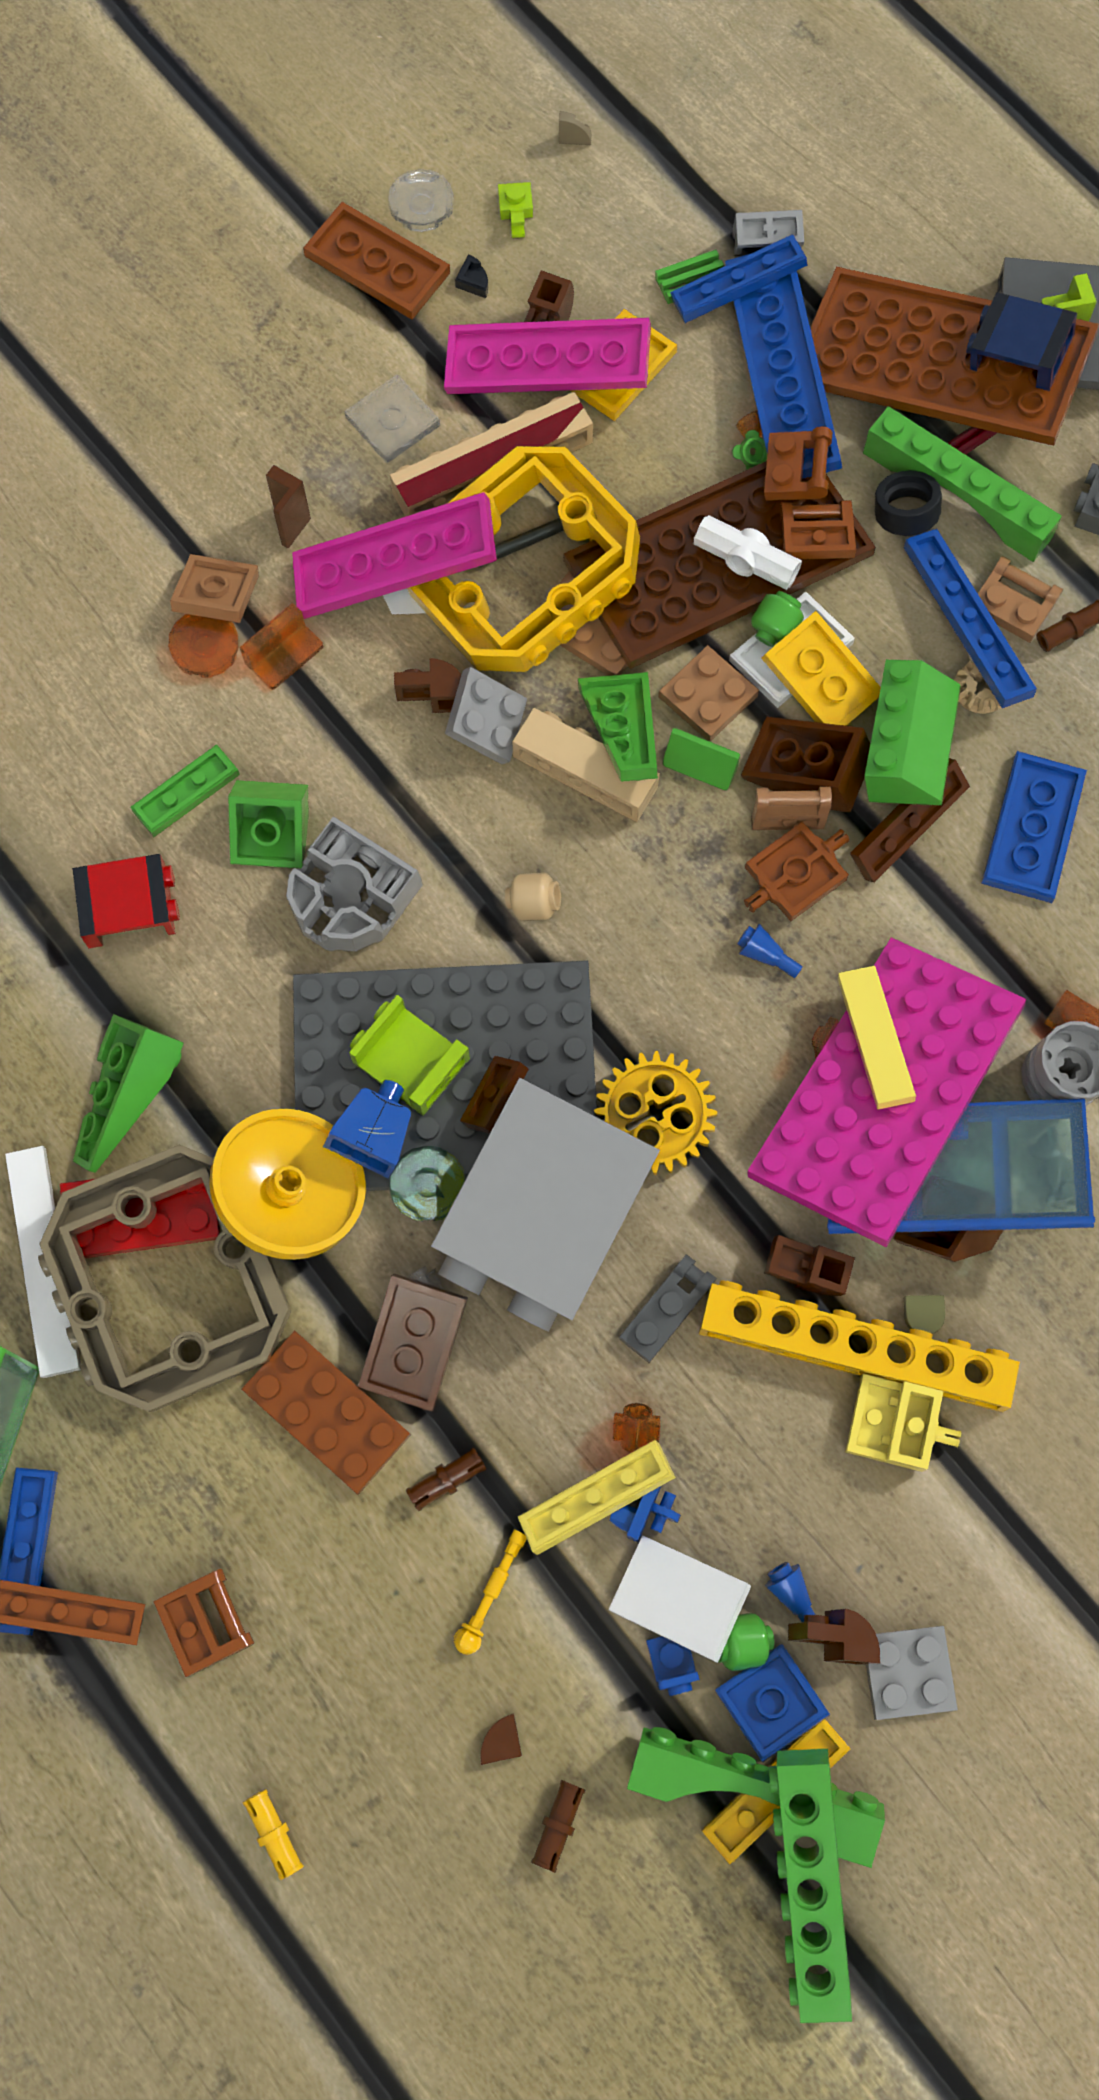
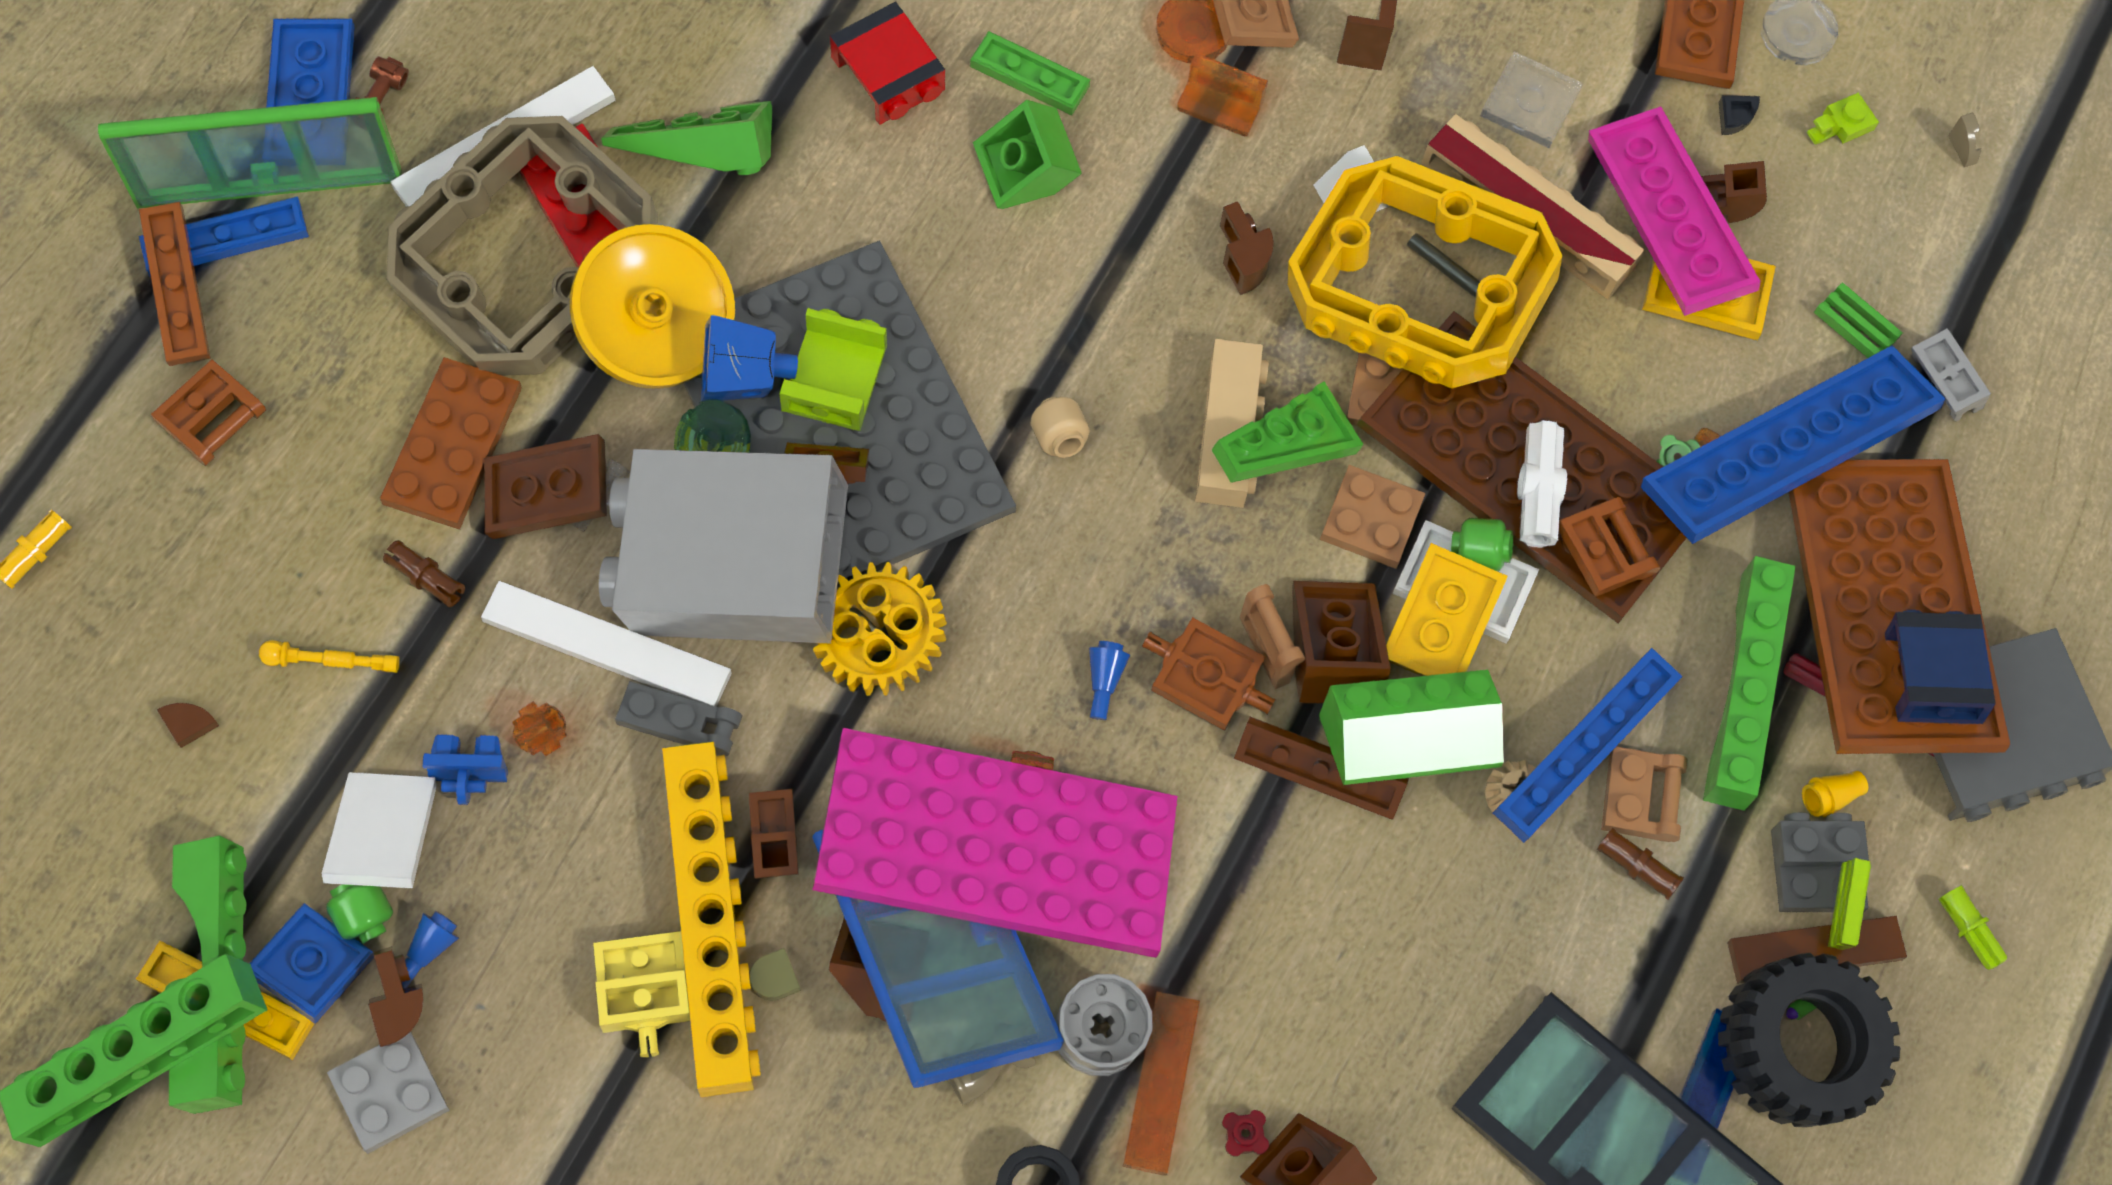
camera: 60 degrees right, 5 degrees down
(350, 926) = (1007, 291): light grey connector -> none
(394, 555) = (1363, 150): dark pink plate -> none
(485, 715) = (1235, 304): light grey plate -> none
(558, 1826) = (121, 802): reddish brown pin -> none
(574, 1346) = (605, 644): none -> white tile
(596, 1497) = (453, 714): light yellow tile -> none
(672, 1665) = (308, 854): blue bracket -> none
(701, 759) = (1290, 534): bright green slope -> none
(739, 278) = (1873, 363): blue tile -> none
(786, 465) = (1662, 483): dark orange plate -> none
(876, 1037) = (1043, 805): light yellow tile -> none
(910, 521) = (1711, 617): black tyre -> none
(1034, 827) = (1379, 905): blue tile -> none
(1068, 471) = (1832, 793): none -> yellow cone
(1077, 299) = (2026, 715): lime panel -> none

